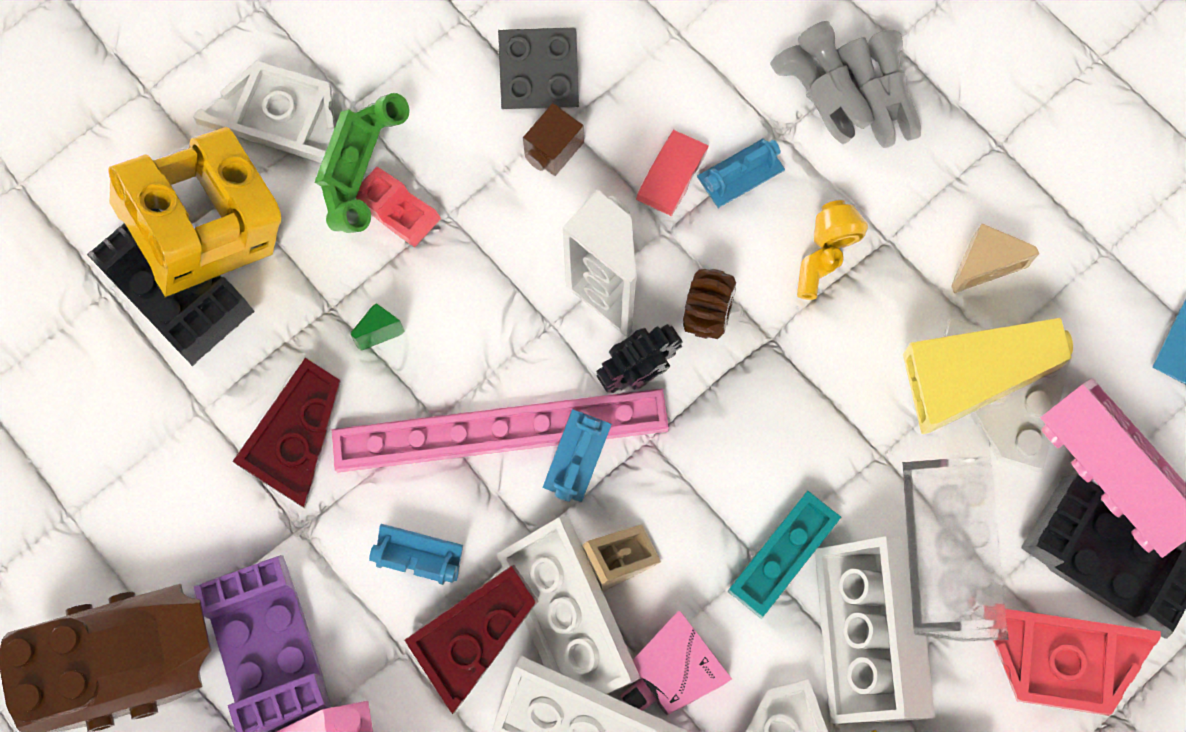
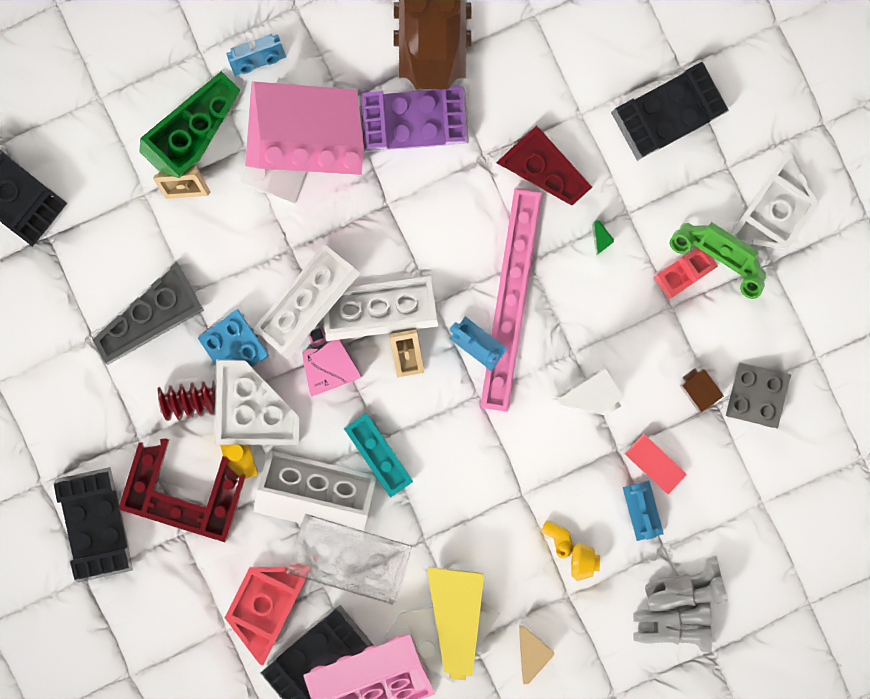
camera: 105 degrees right, 15 degrees up
(168, 238) = (685, 120): yellow piece -> none
(424, 554) = (438, 235): dark azure hinge -> none
(471, 634) = (384, 246): dark red wing -> none
(639, 358) = (526, 400): black gear -> none
(709, 303) = (552, 458): reddish brown gear -> none

